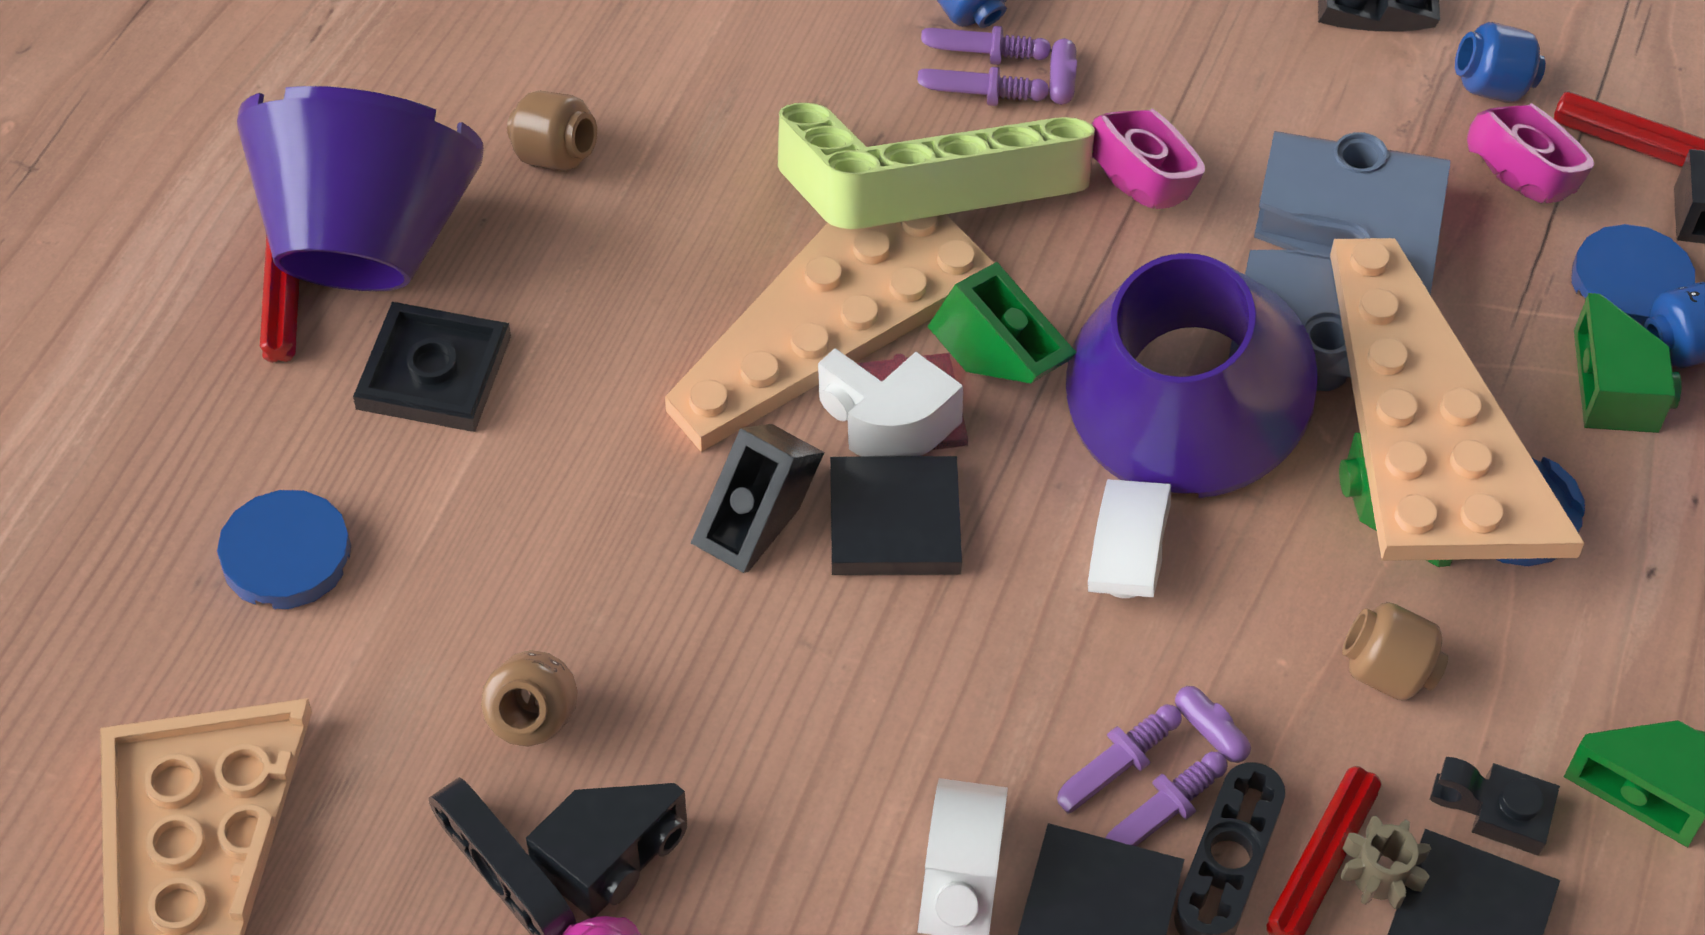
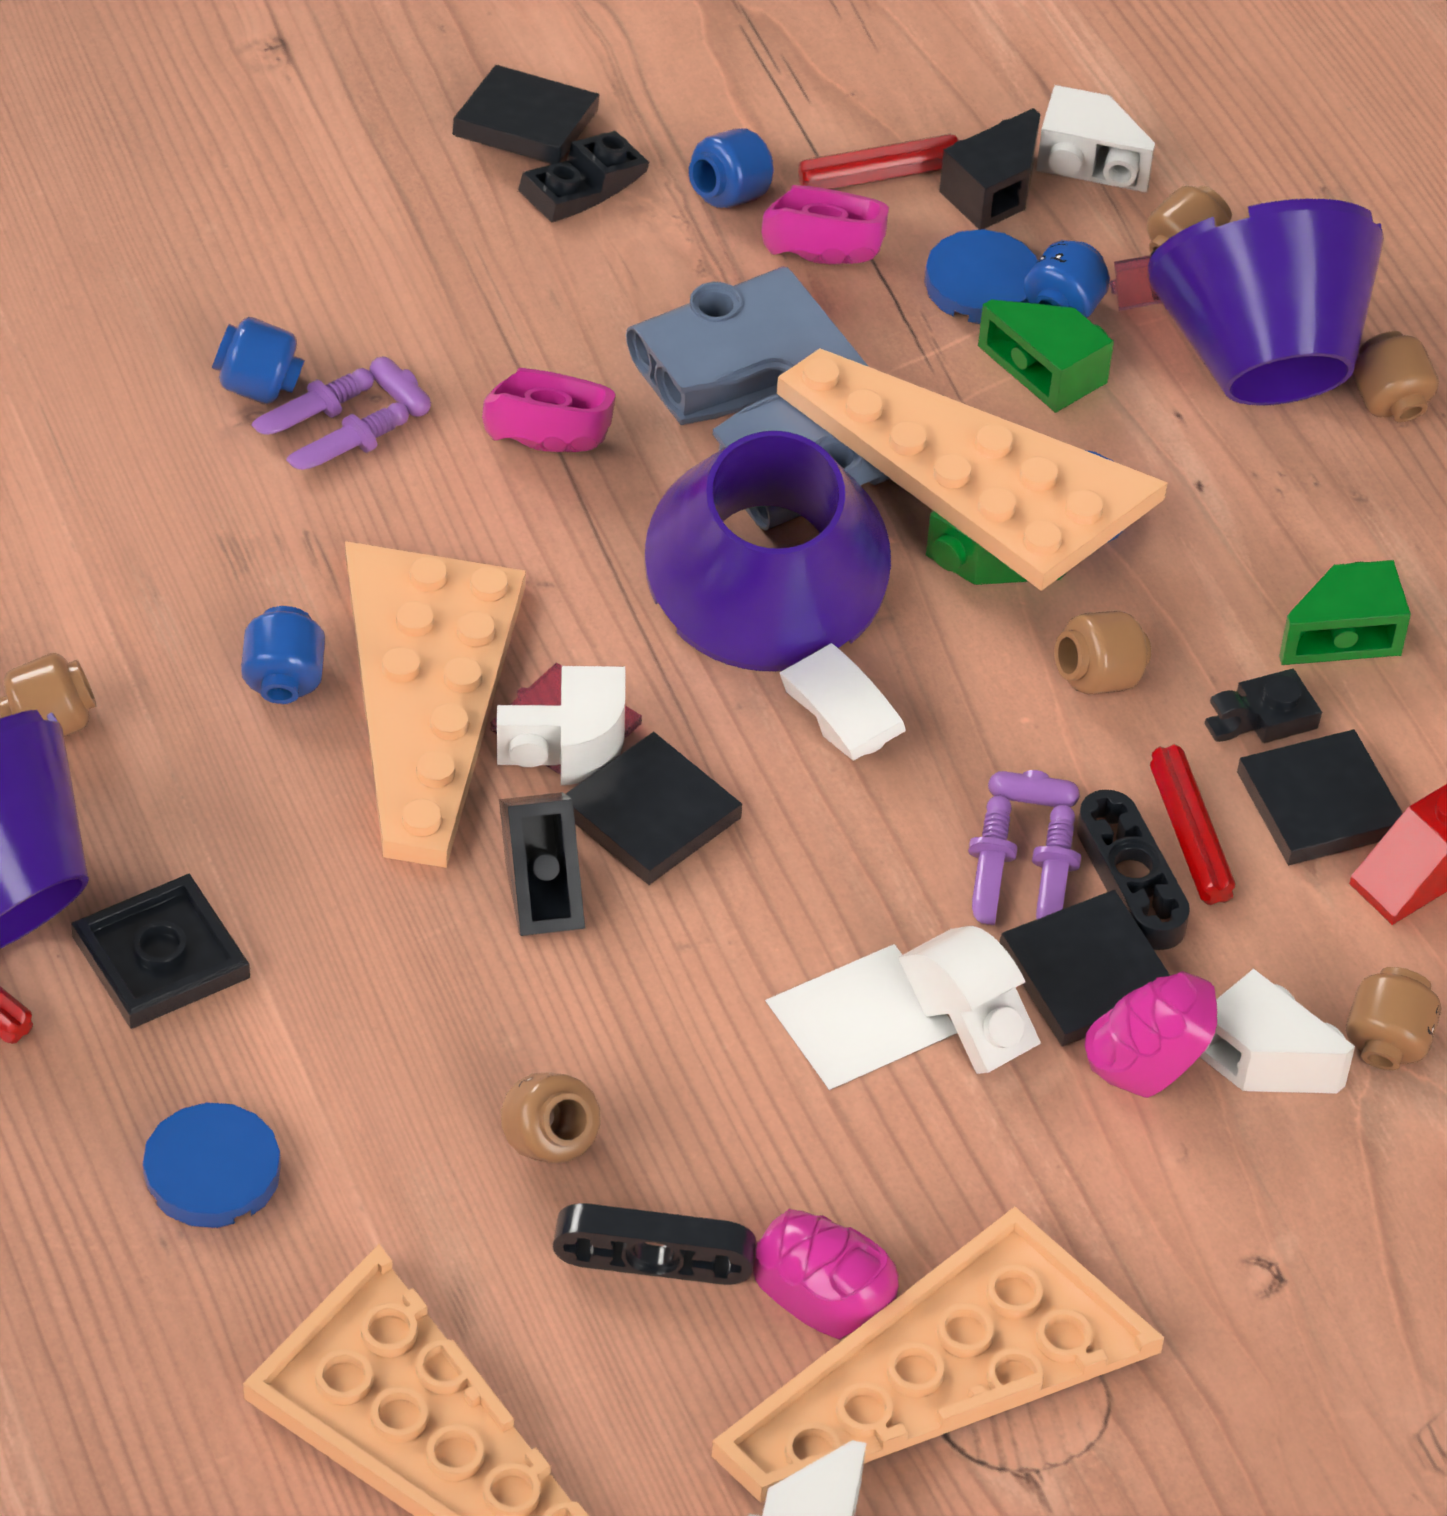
camera: 45 degrees left, 5 degrees down
(605, 838) = (711, 1165): black slope -> none
(745, 208) = (283, 653): none -> blue head
(870, 804) = (858, 1018): none -> white sticker
(930, 175) = (403, 541): yellowish green beam -> none
(998, 329) = (594, 614): green slope -> none
(1391, 842) = (1244, 793): dark tan gear -> none

